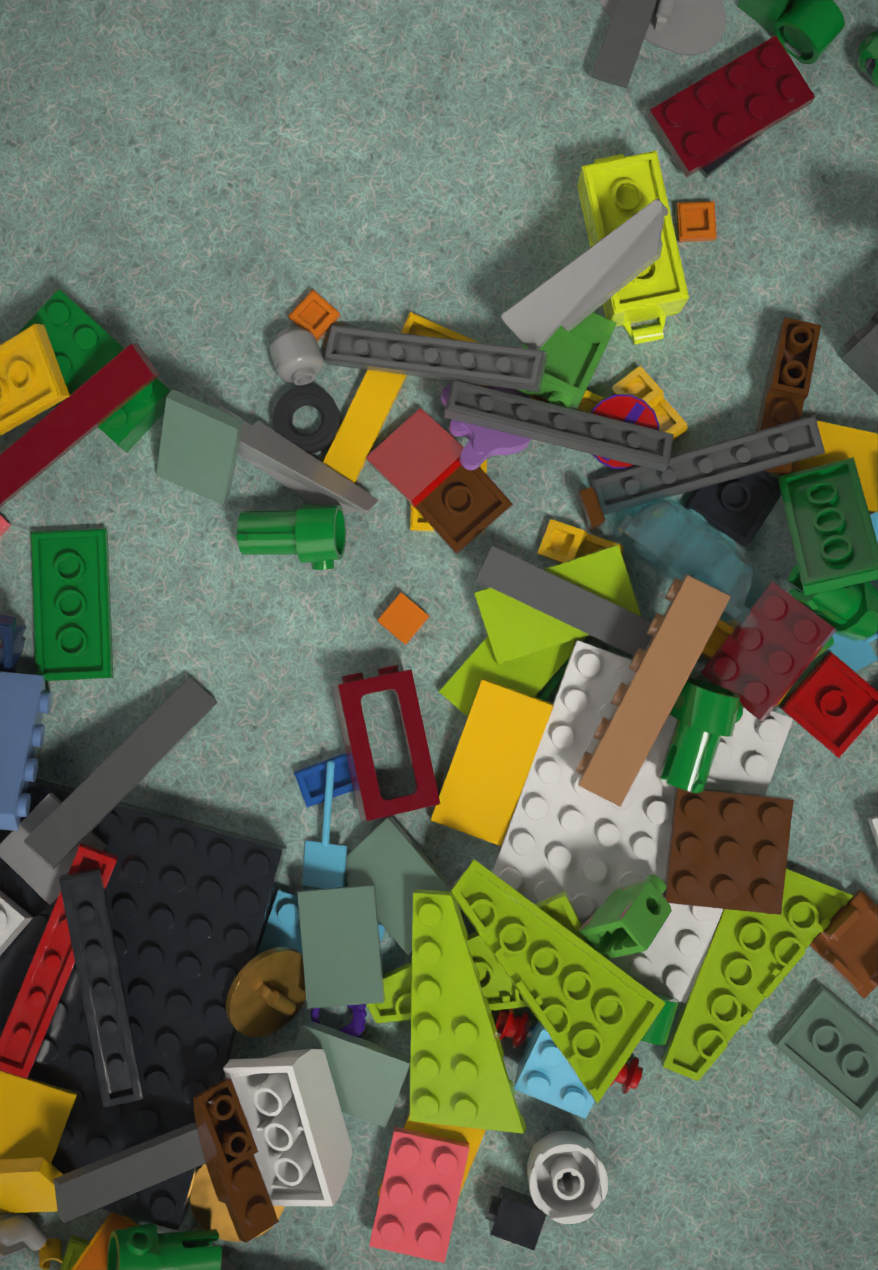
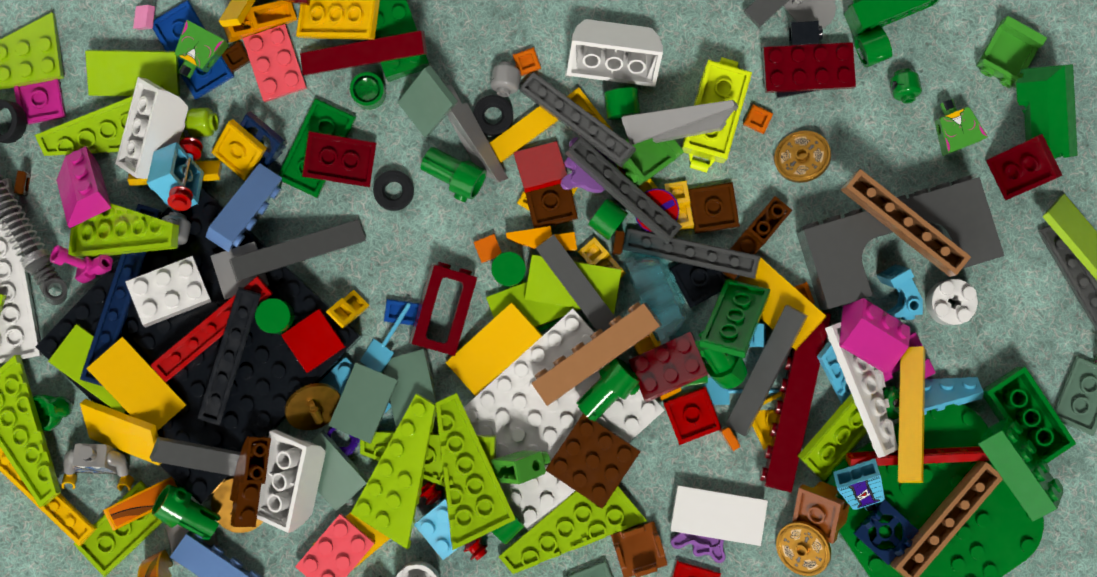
camera: 20 degrees right, 0 degrees up
(102, 479) = (367, 90): none -> green piece
(113, 603) = (338, 159): none -> dark red plate
(138, 890) = (274, 316): none -> green piece
(196, 601) = (407, 190): none -> black tyre
(217, 895) = (313, 341): none -> red tile
(243, 819) = (347, 309): none -> yellow slope
(439, 231) = (615, 53): none -> white windscreen
(450, 632) = (508, 269): none -> green piece
(465, 564) = (534, 237): none -> light orange slope
(485, 300) = (621, 102): none -> green piece
(557, 481) = (608, 218): none -> green piece
(697, 58) = (805, 33): none -> black brick
(702, 384) = (713, 208): none -> reddish brown tile
(792, 239) = (802, 156): none -> pearl gold shield

